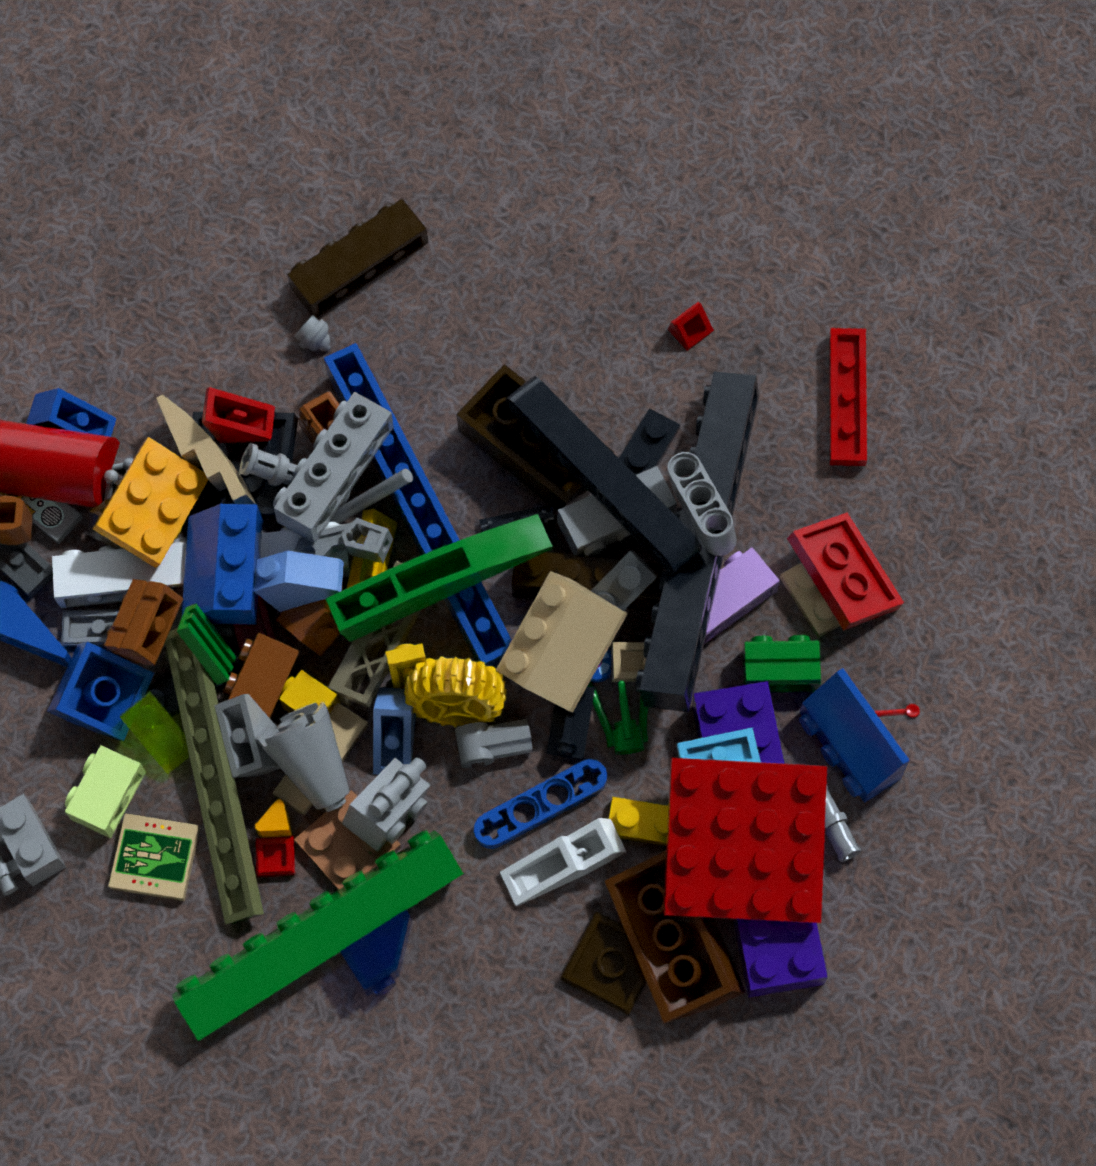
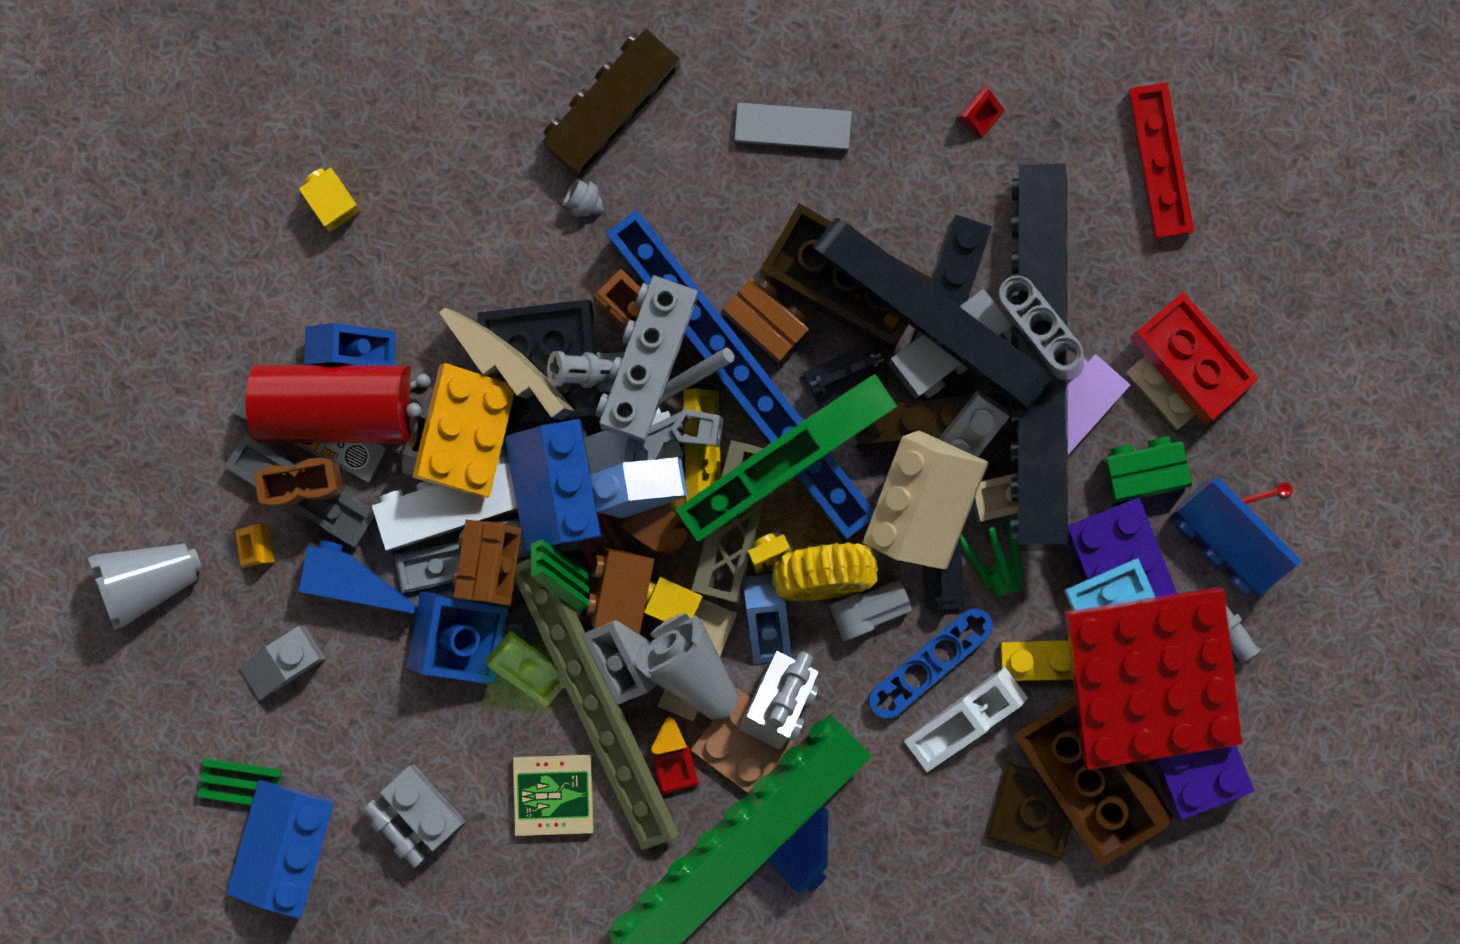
camera: 15 degrees left, 15 degrees up
(86, 292) = (329, 198): none -> yellow brick
(104, 791) = (486, 740): yellowish green brick -> none
(237, 418) = (532, 318): red slope -> none
(453, 467) = (765, 320): none -> dark orange brick
(517, 309) = (793, 126): none -> light grey tile

